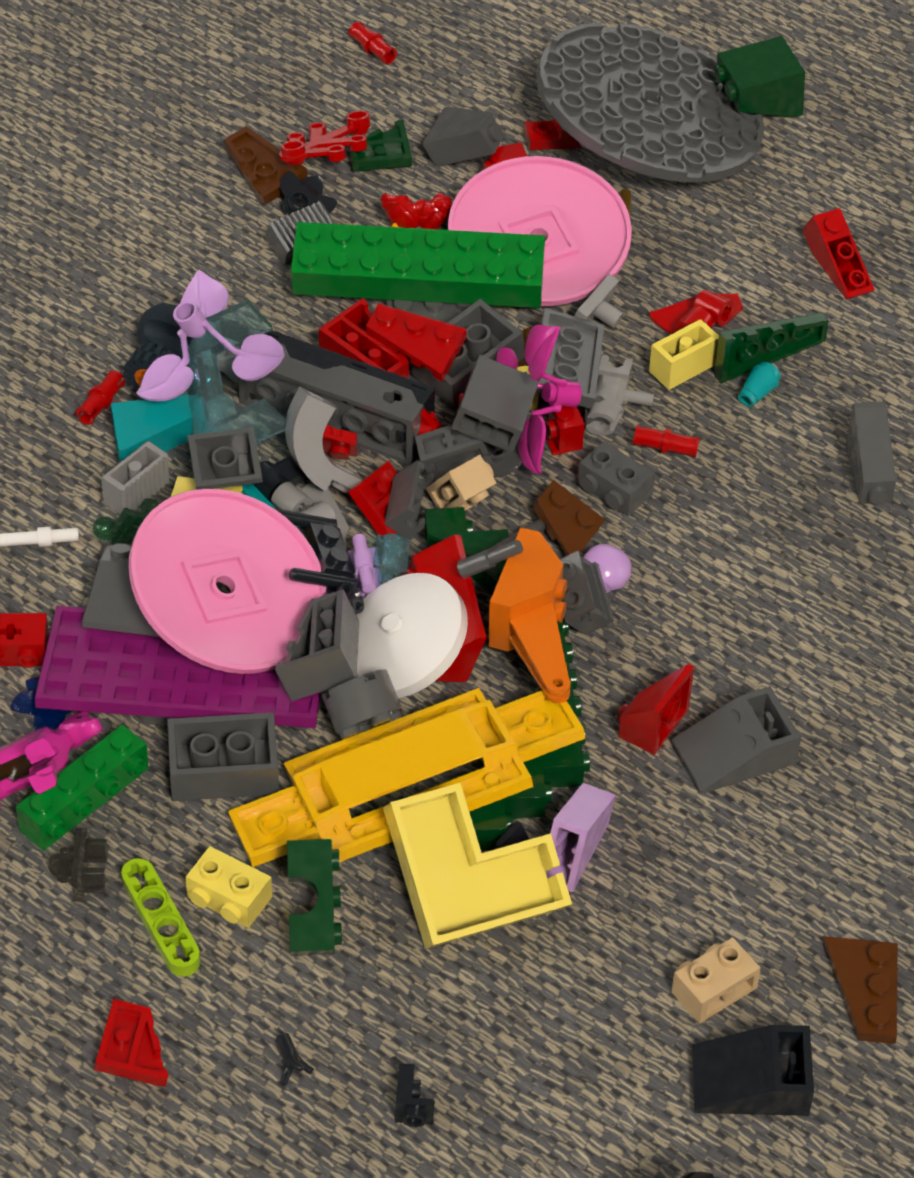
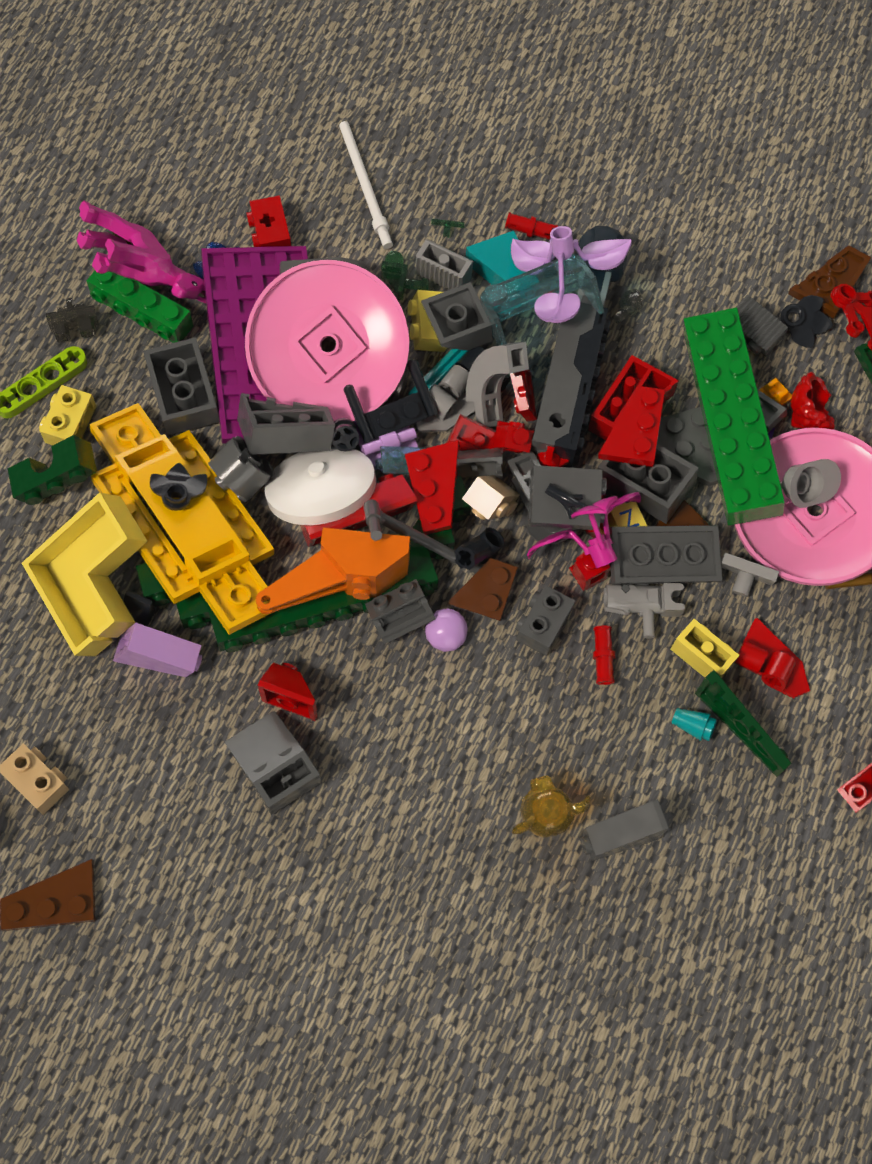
camera: 75 degrees right, 20 degrees up
(68, 476) = (447, 225): none -> clear green piece
(386, 753) = (178, 484): none -> black plate
(395, 447) = (513, 437): none -> red brick
(425, 521) = (433, 482): none -> red wing
(508, 389) = (566, 499): none -> black bar
(519, 216) = (811, 482): none -> light grey piece
(522, 510) = (479, 549): none -> black piece
(840, 509) = (547, 809): none -> clear yellow piece

